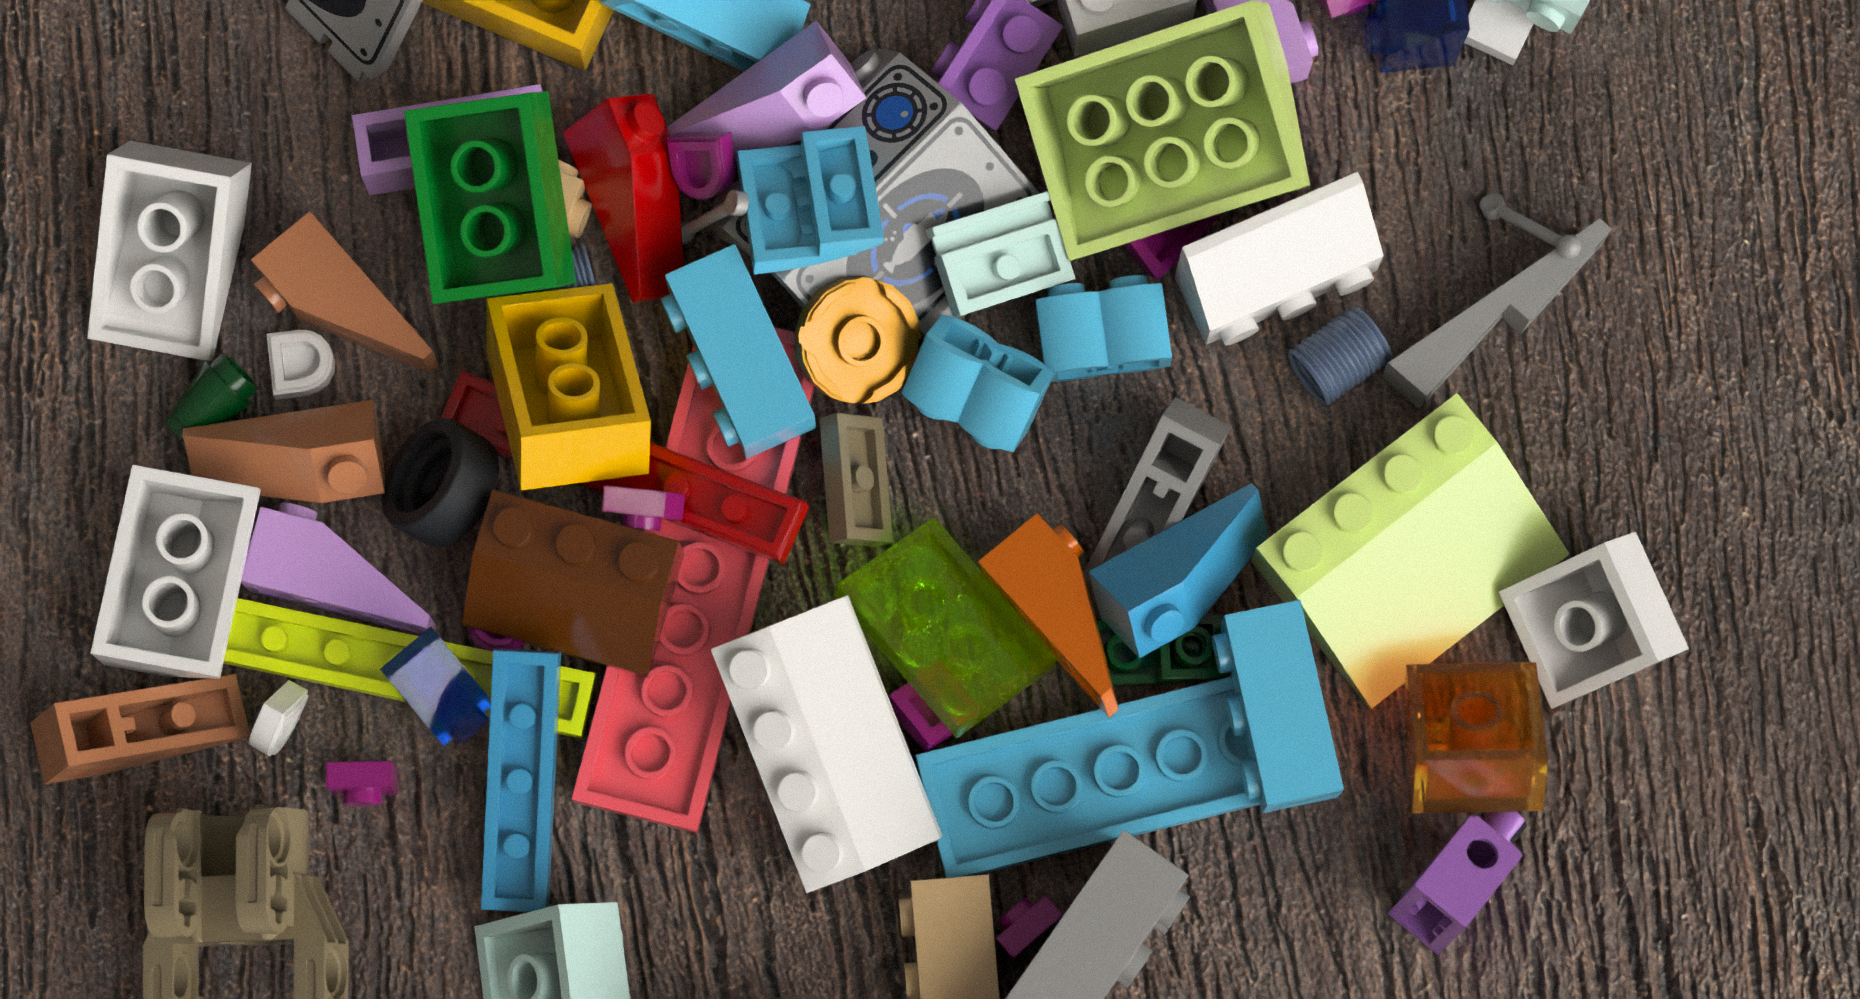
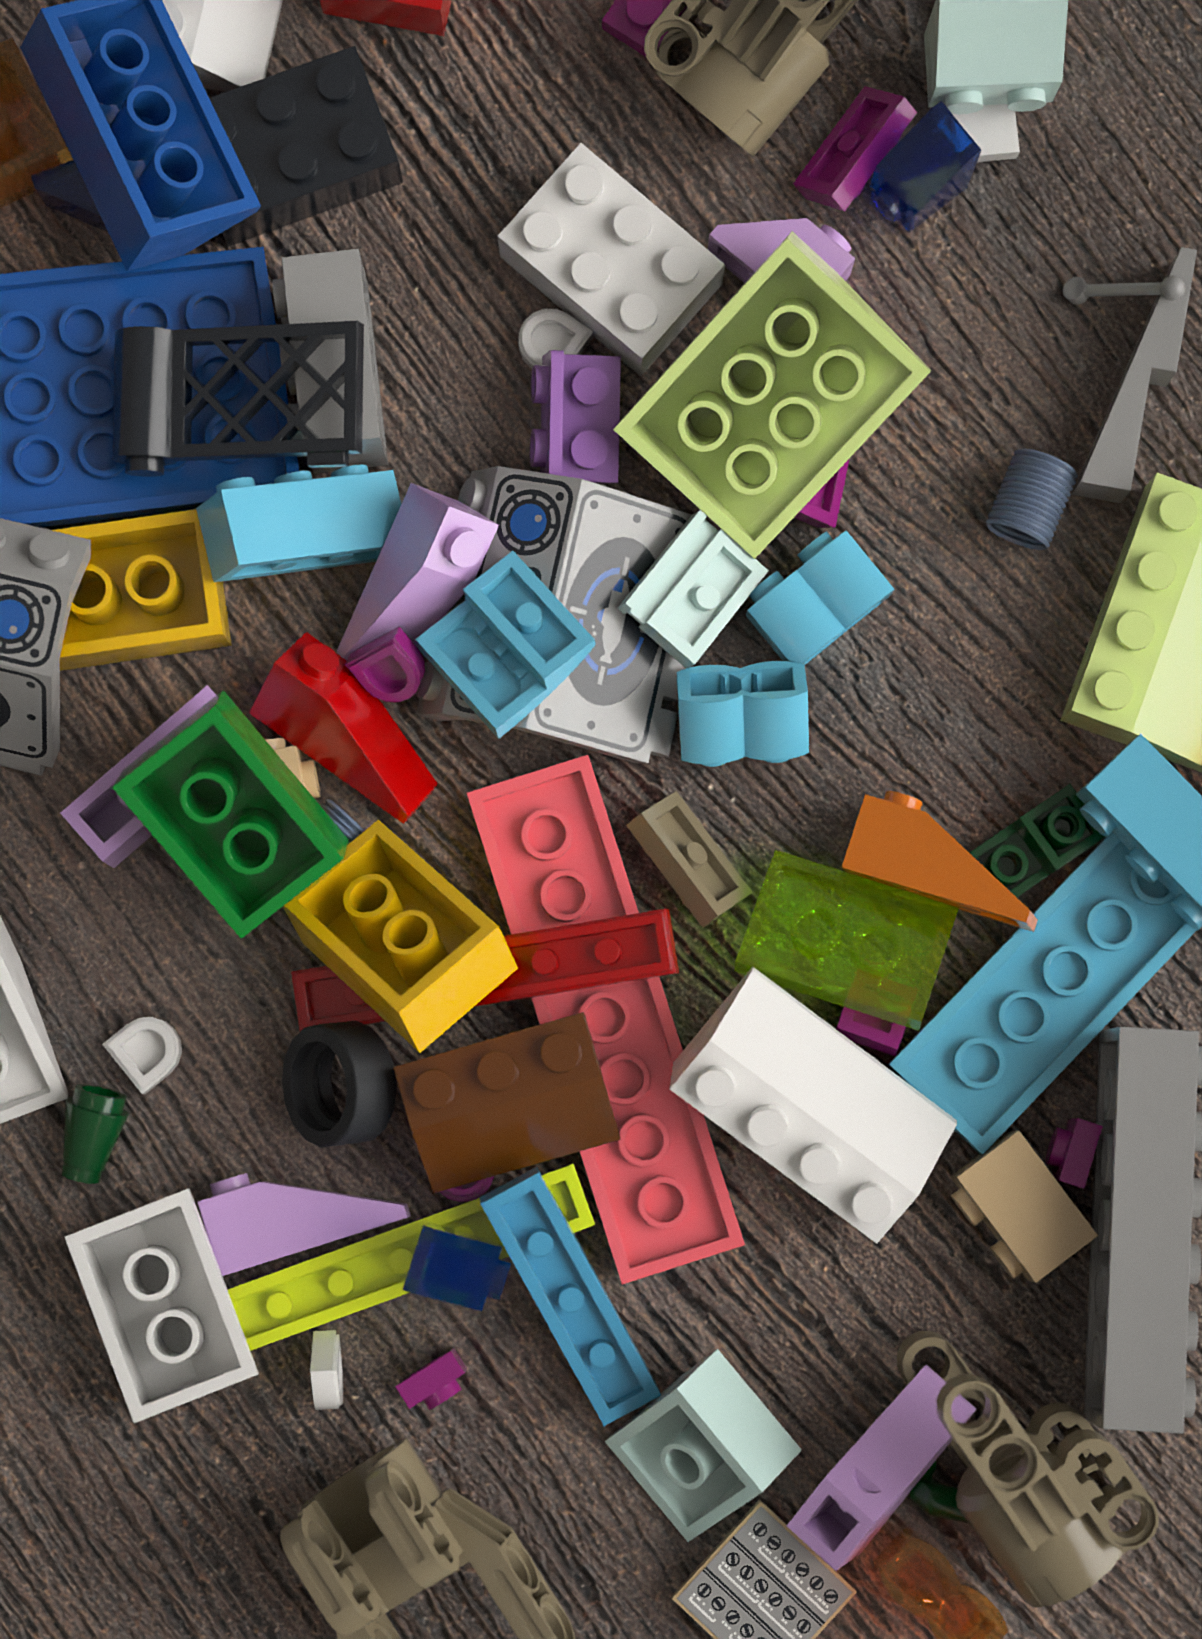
camera: 30 degrees left, 5 degrees up
(137, 727) = (211, 1454): nougat slope -> none
(295, 454) = (195, 1137): nougat slope -> none
(332, 293) = (135, 974): nougat slope -> none
(643, 507) = (531, 999): plate -> none
(735, 205) = (444, 687): light grey hinge -> none
(737, 353) = (524, 814): medium azure brick -> none
(857, 339) = (618, 738): tile -> none
(1163, 480) = (955, 718): light grey slope -> none
(1179, 573) = (1015, 779): dark azure slope -> none
(1280, 261) = (935, 450): white slope -> none

